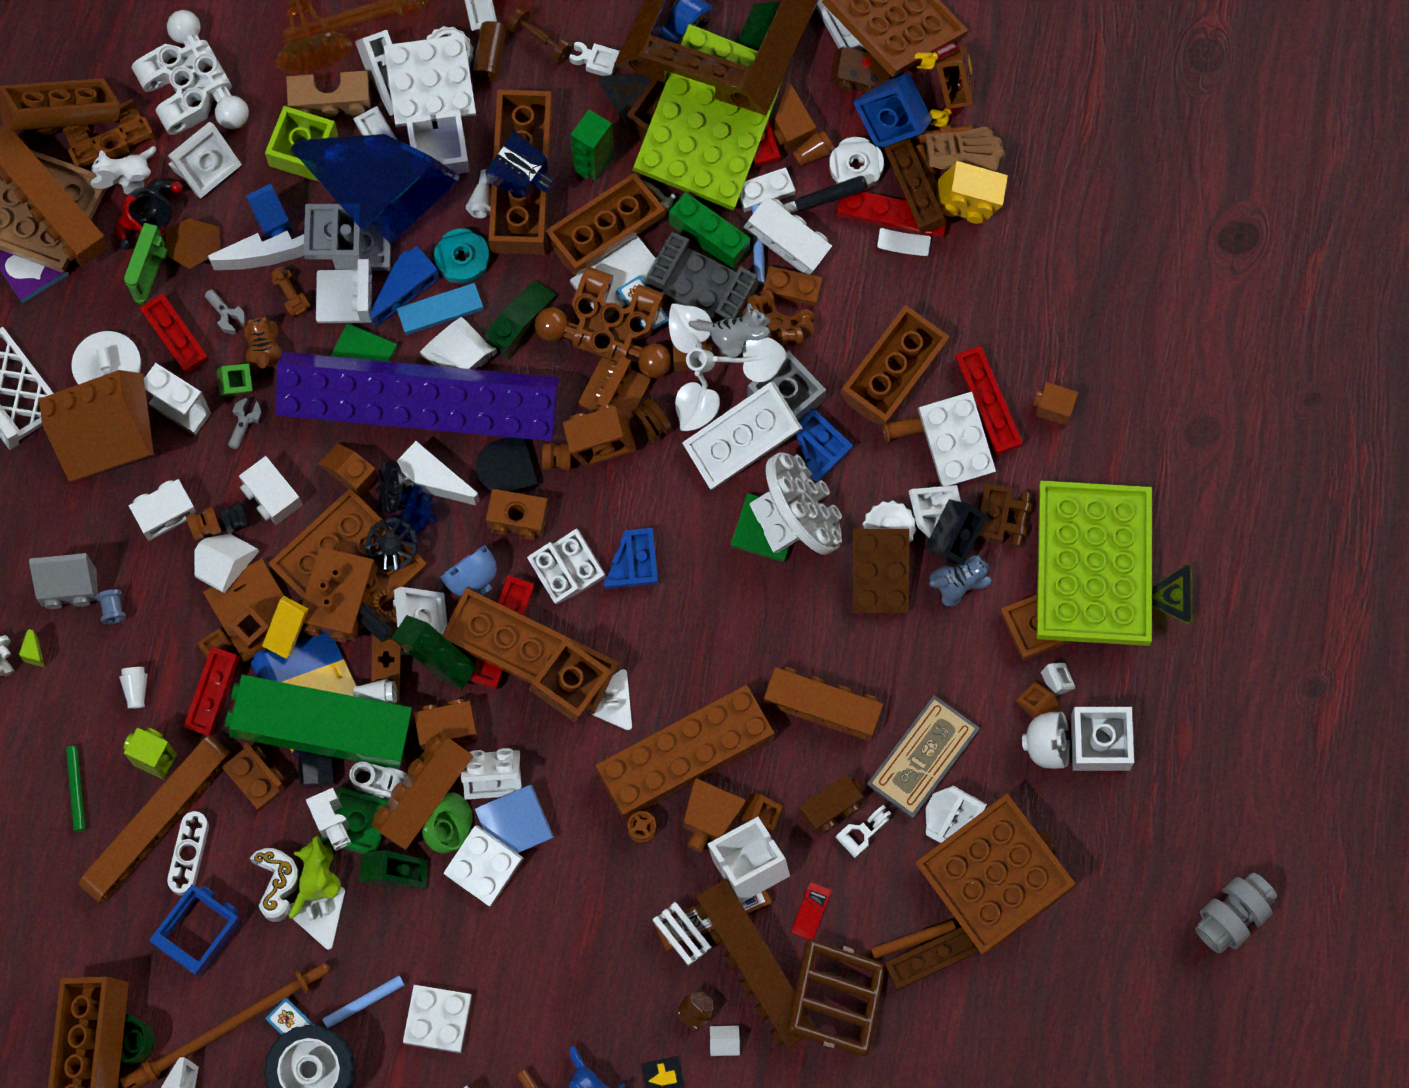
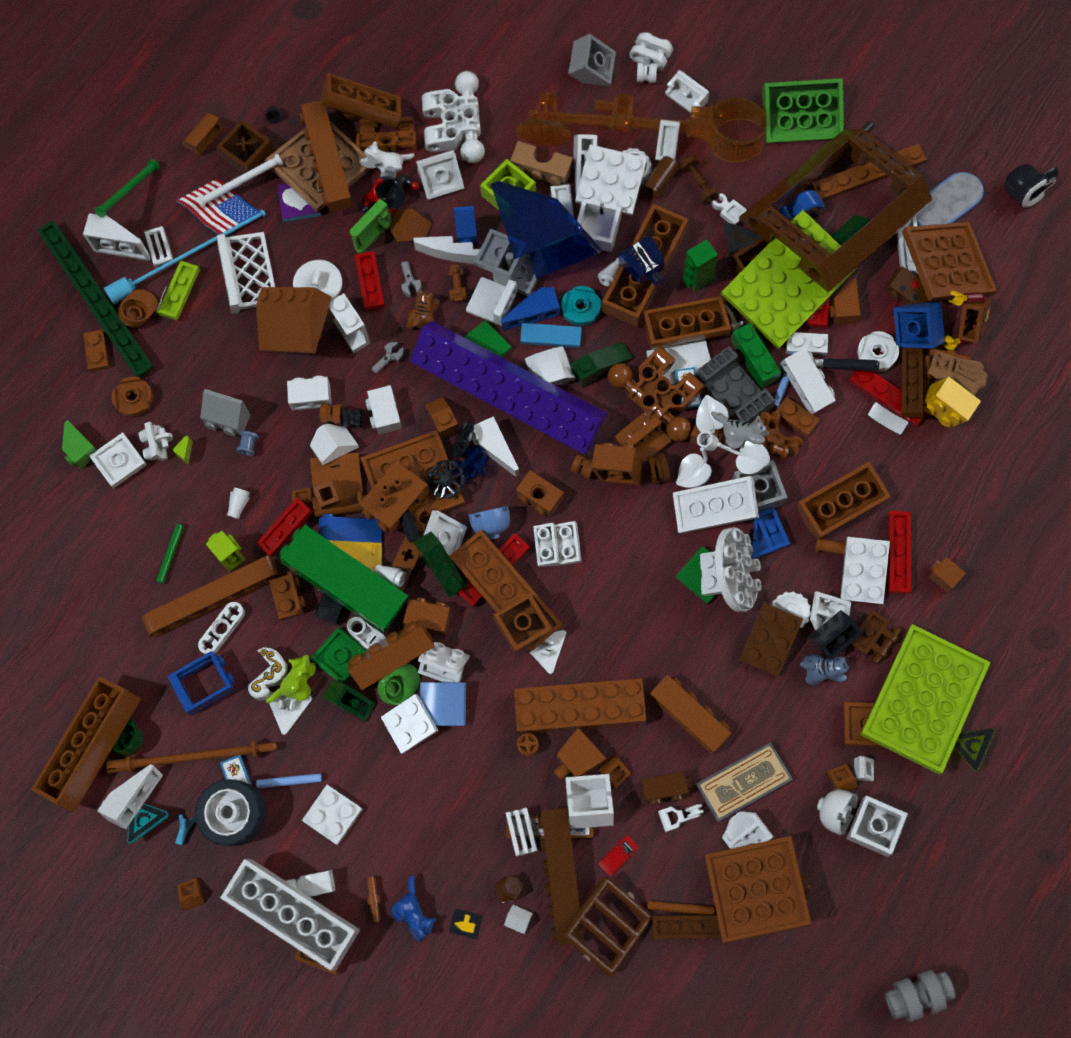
camera: 30 degrees right, 0 degrees up
(234, 380) = (393, 327): bright green brick -> none
(285, 627) = (349, 505): yellow tile -> none
(329, 824) = (318, 646): white hips -> none
(506, 466) = (547, 459): black tile -> none
(634, 561) = (604, 560): blue wing -> none
(814, 148) = (852, 329): dark orange cone -> none

